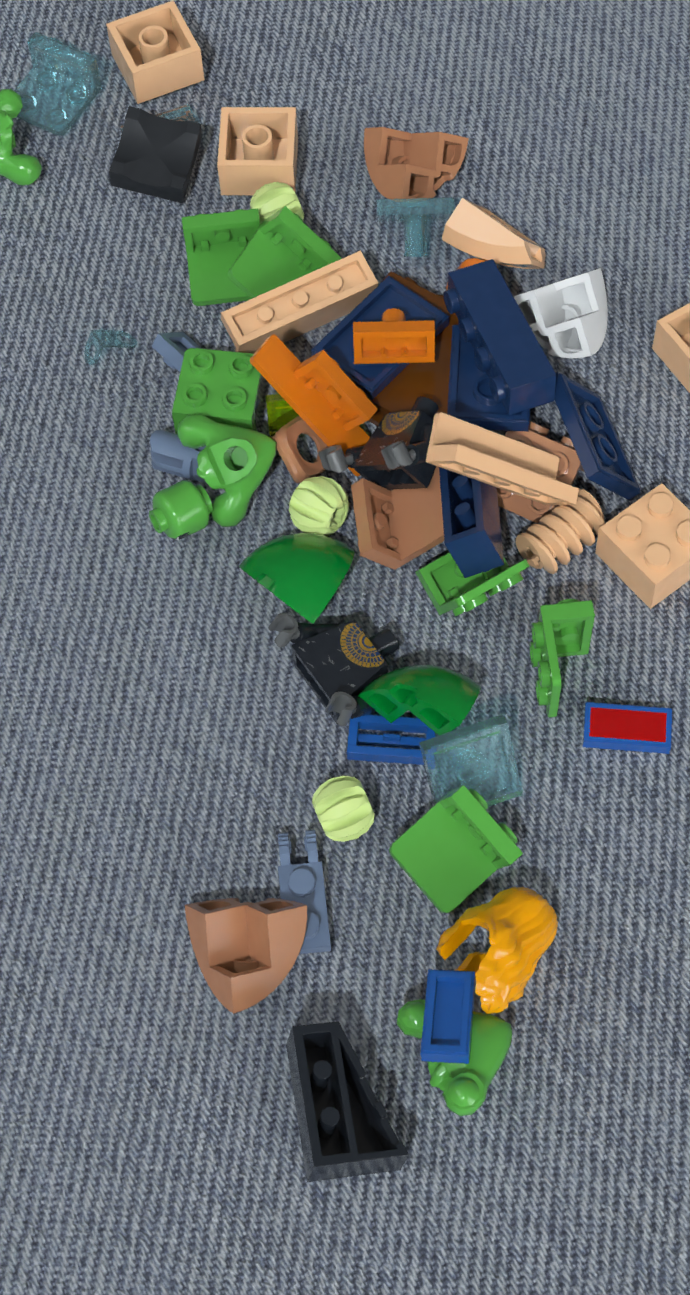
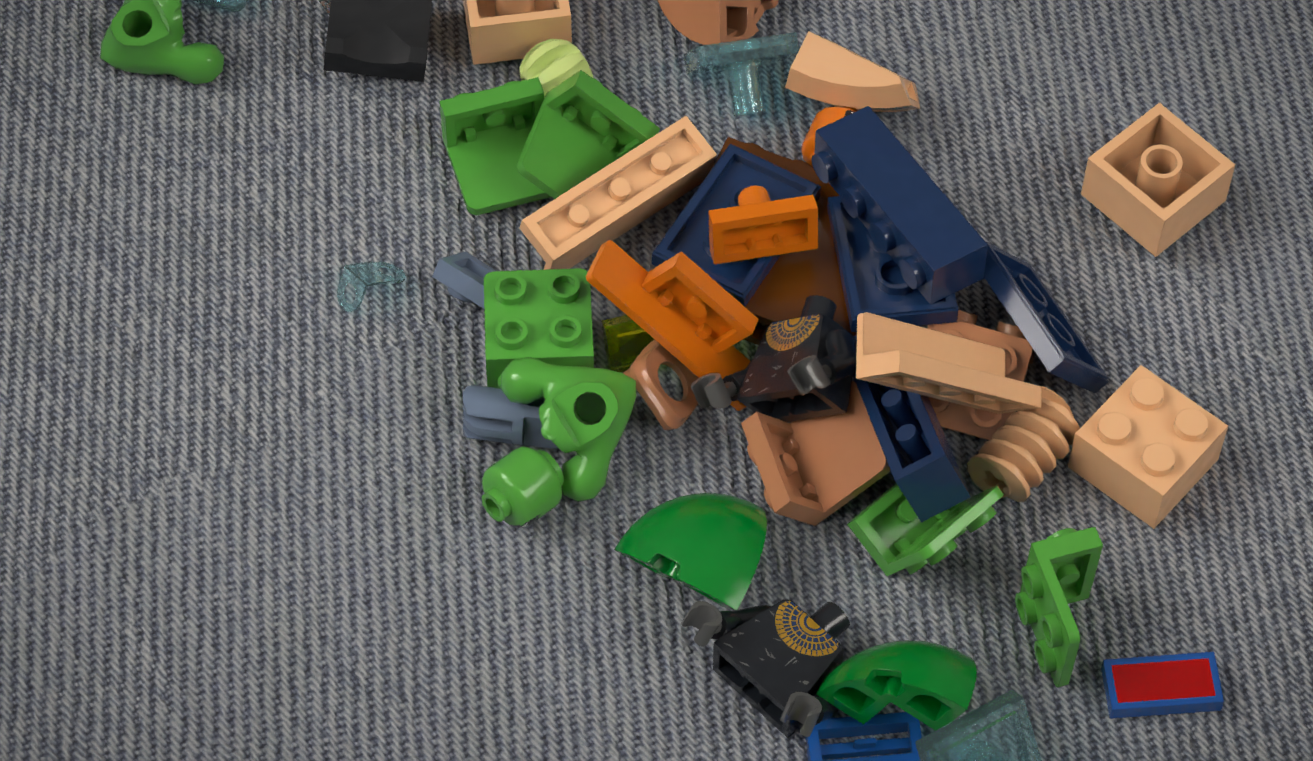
camera: 15 degrees left, 5 degrees down
(319, 506) = (703, 456): yellowish green piece -> none
(568, 314) = (971, 162): white brick -> none

